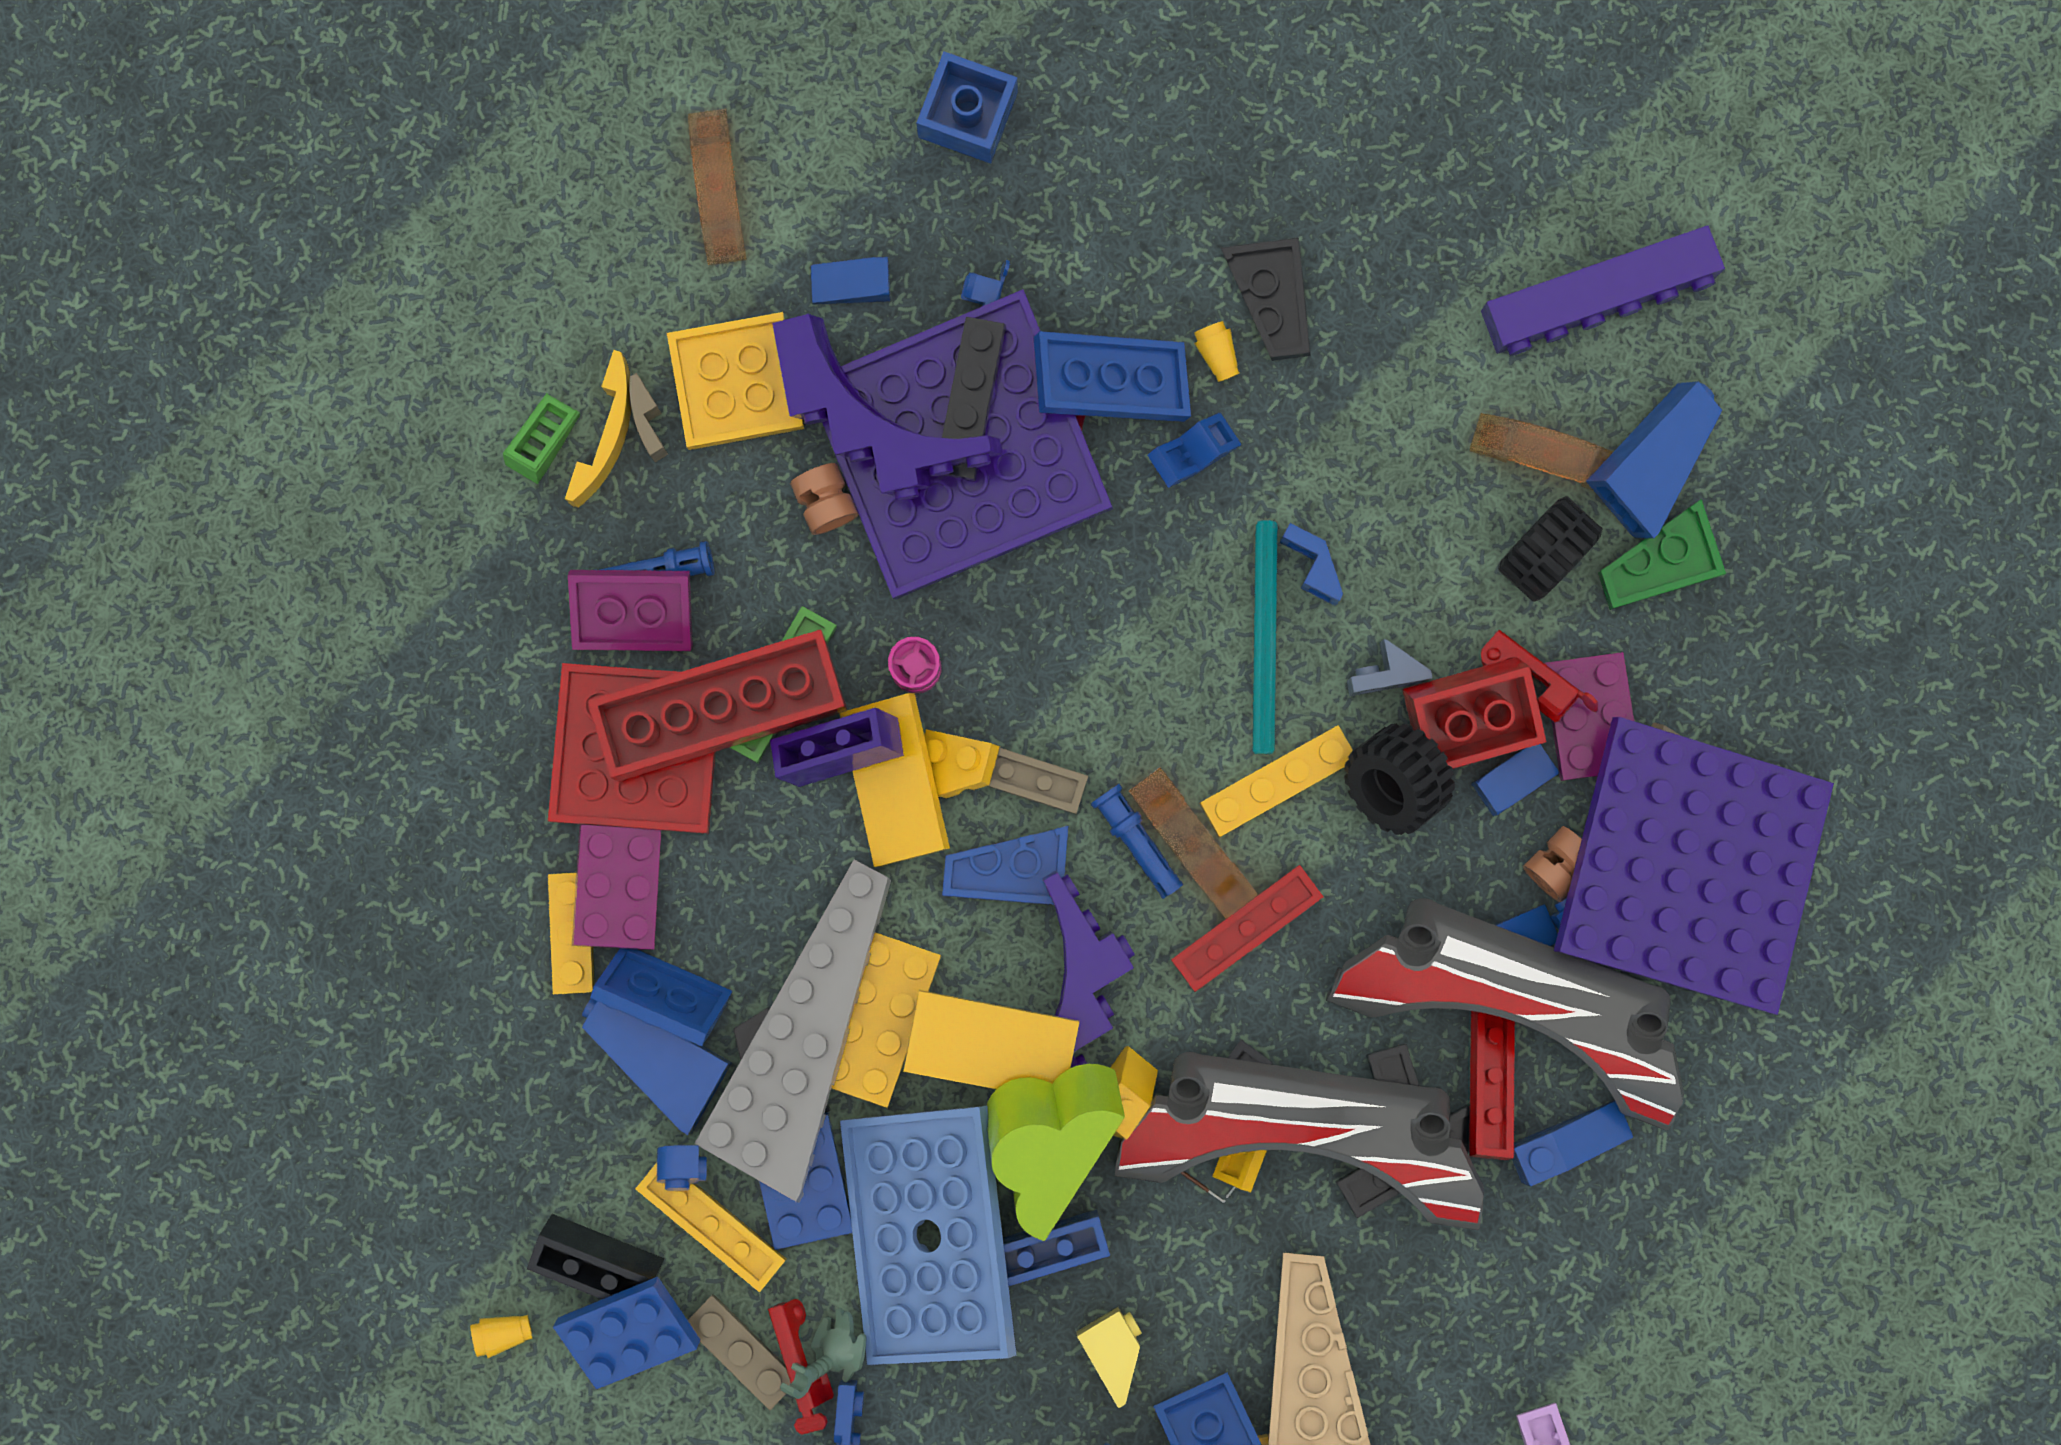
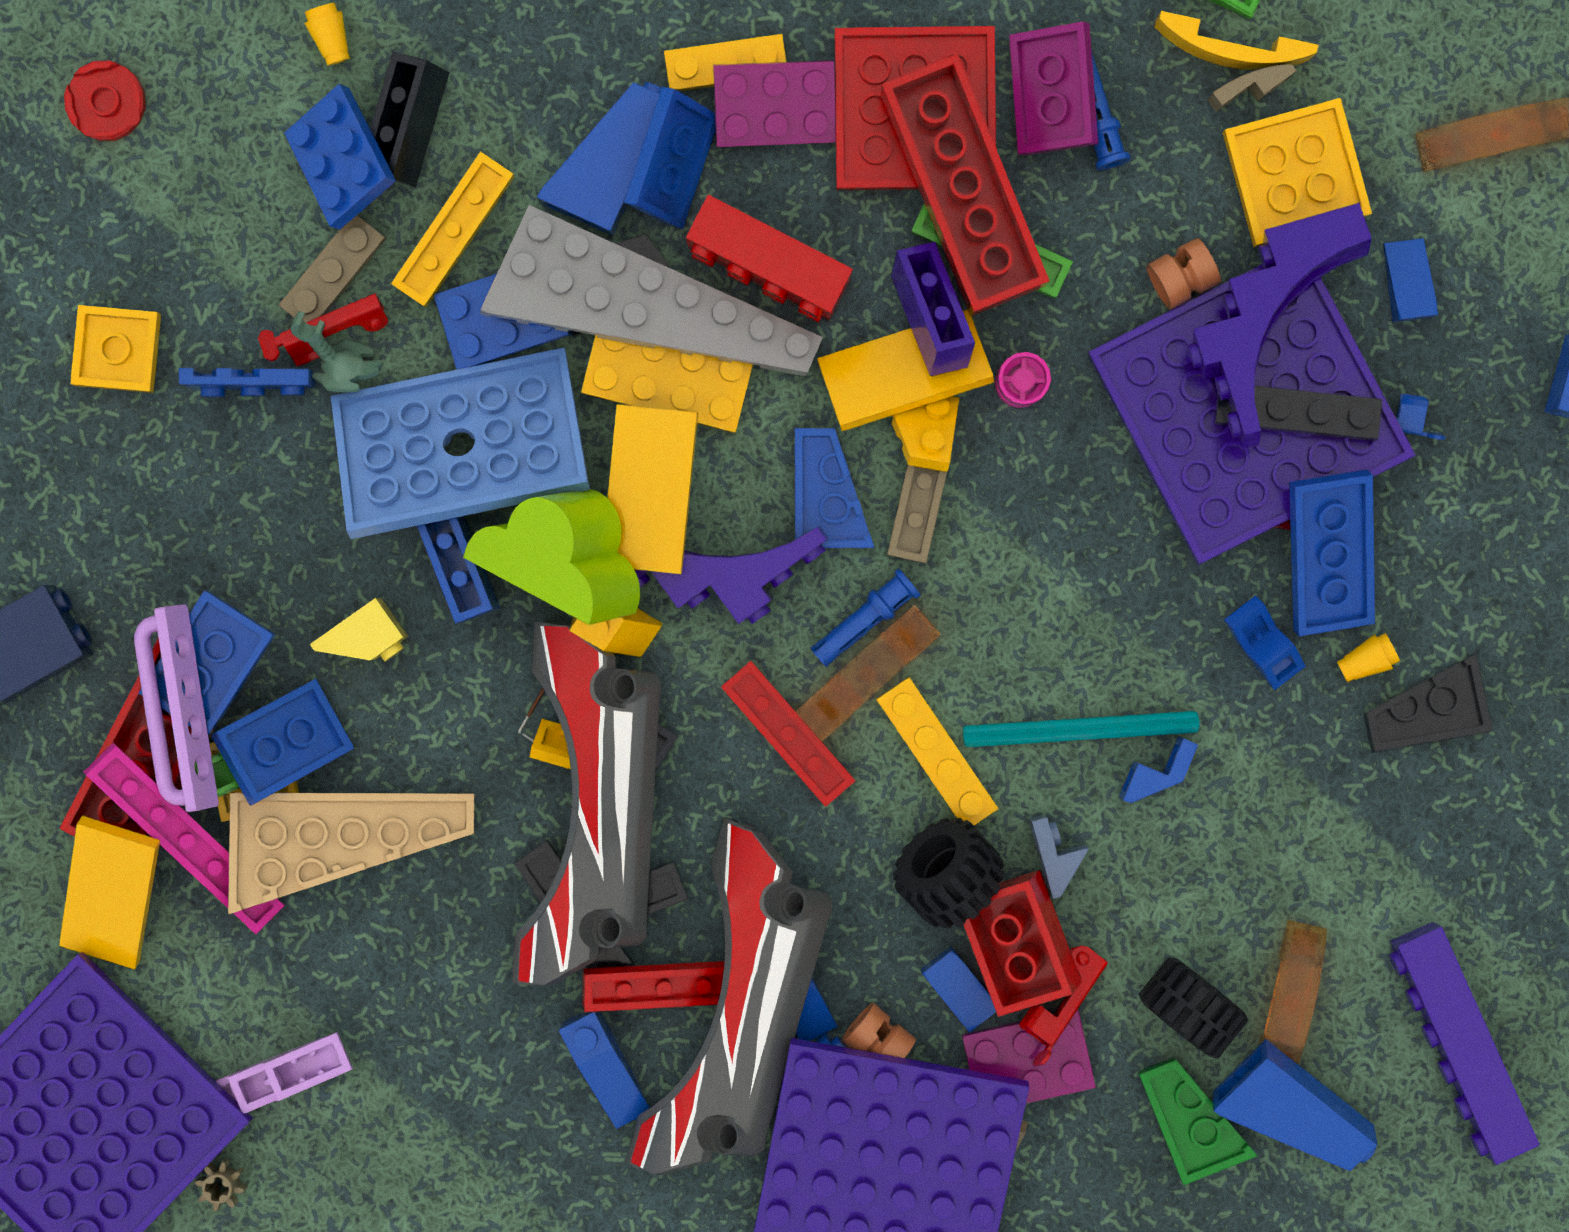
camera: 85 degrees right, 5 degrees up
(680, 1166) = (504, 193): blue plate -> none
(771, 906) = (768, 258): none -> red brick

